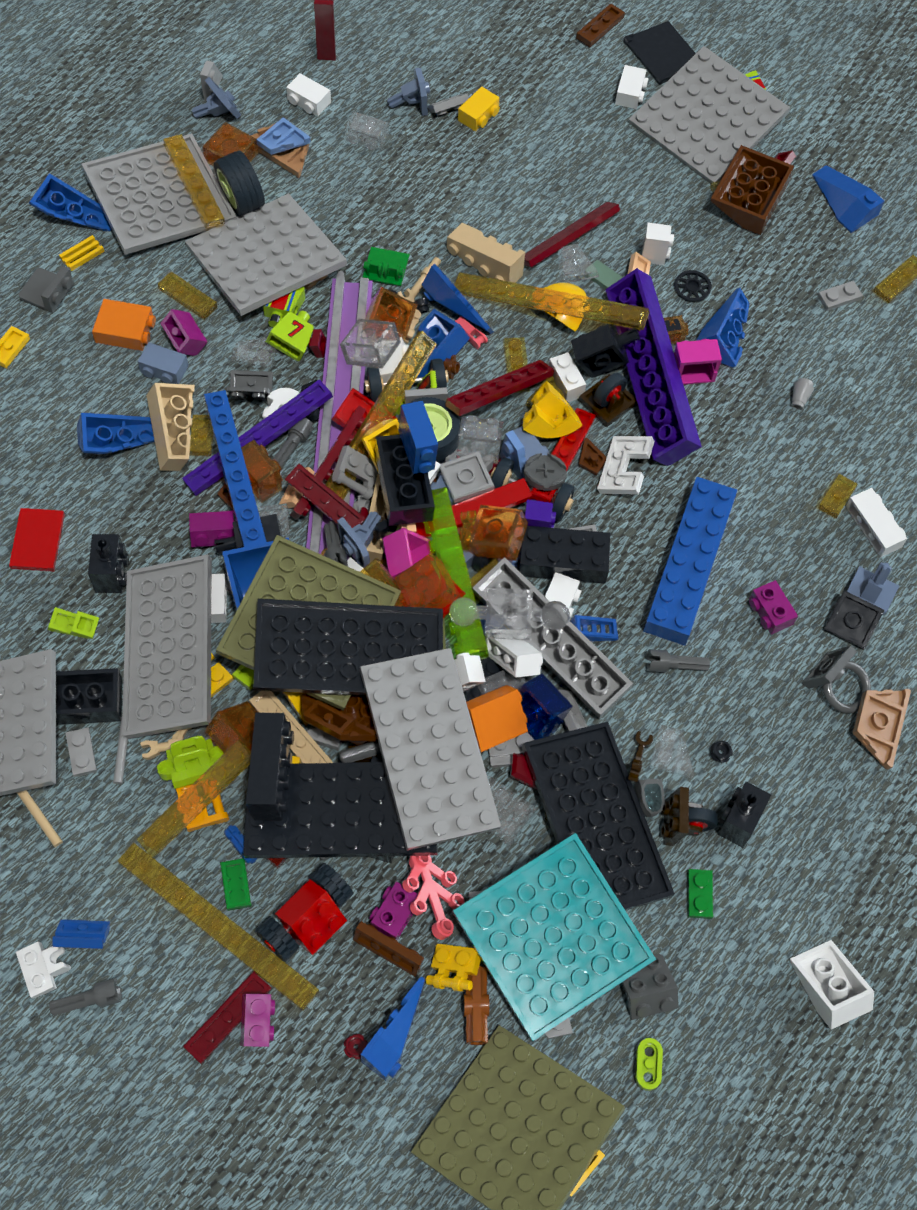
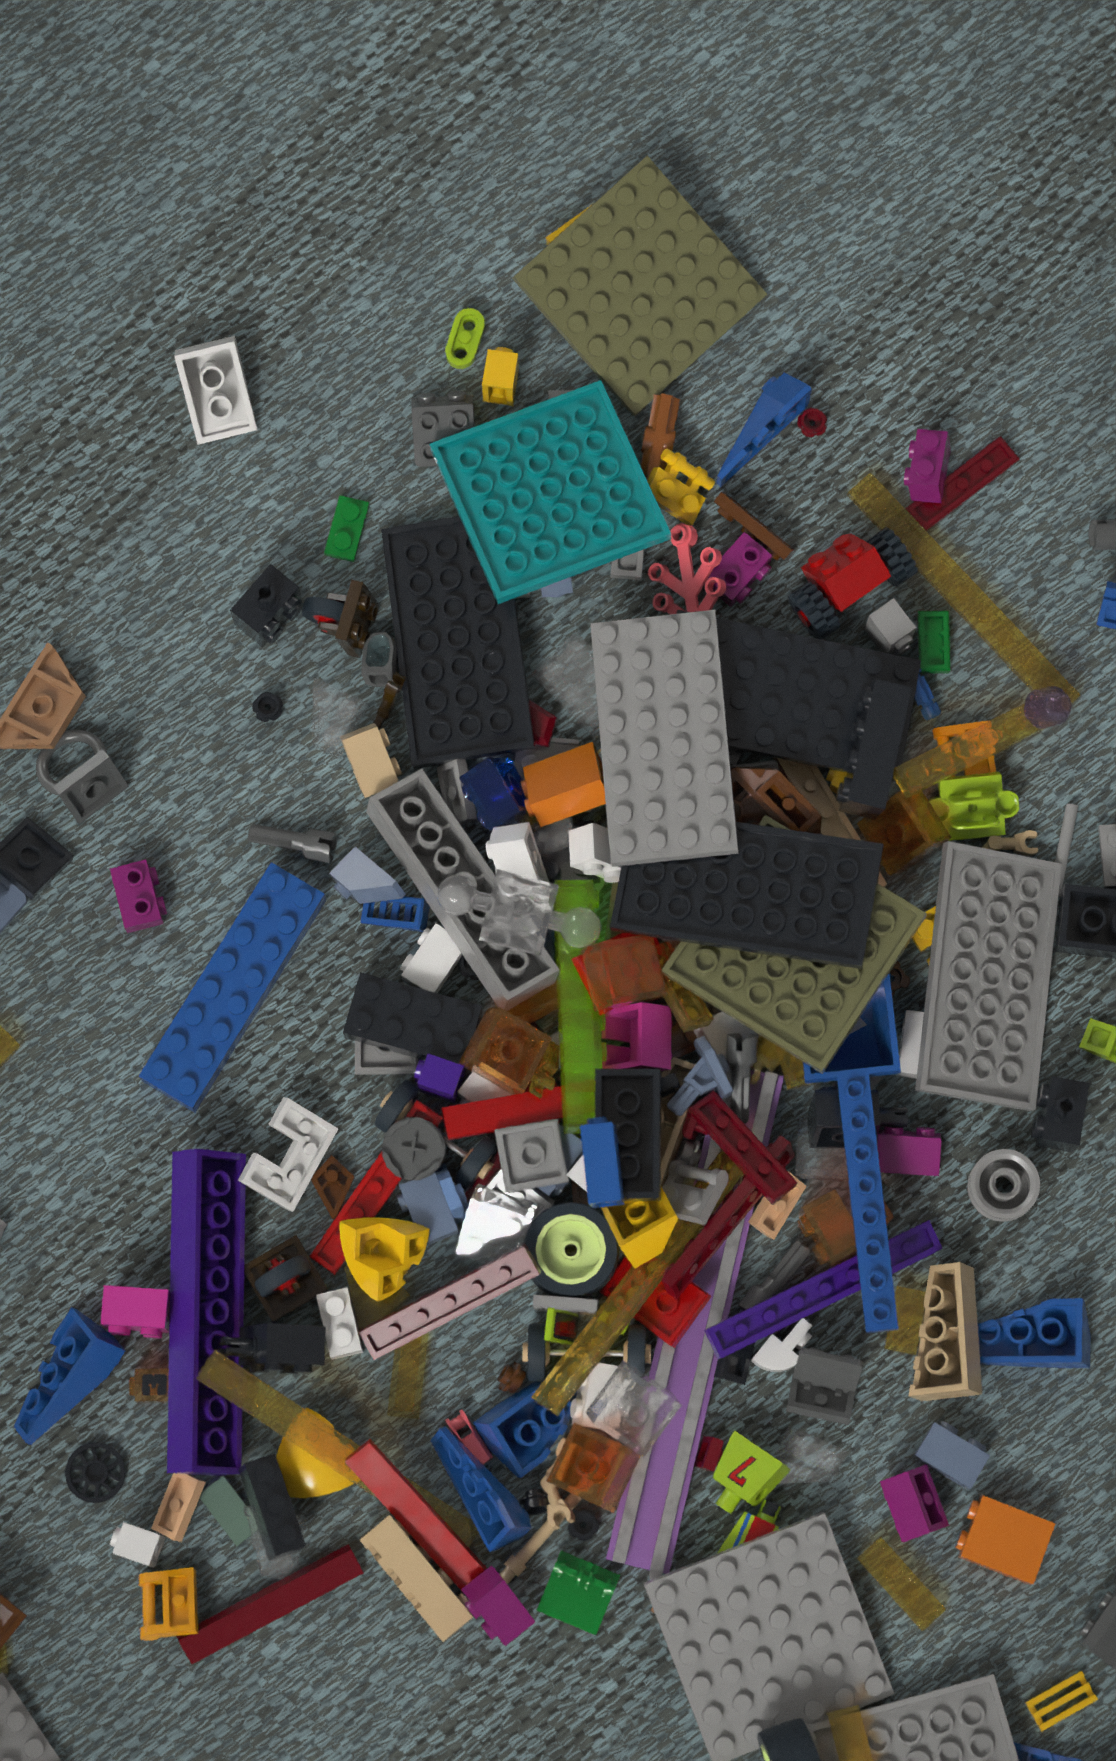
camera: 165 degrees left, 15 degrees up
(141, 838) = (1049, 707): none -> head
(147, 531) = (1018, 1171): none -> light grey wheel
(269, 879) = (890, 629): none -> light grey brick
(433, 243) = (498, 1606): none -> magenta brick
(491, 275) = (415, 1514): none -> red tile
(582, 267) = (271, 1507): none -> black brick
(613, 1029) = (500, 376): none -> yellow brick
(621, 641) = (364, 879): none -> sand blue slope
(624, 224) = (179, 1603): none -> light orange plate
(638, 720) = (370, 759): none -> tan brick

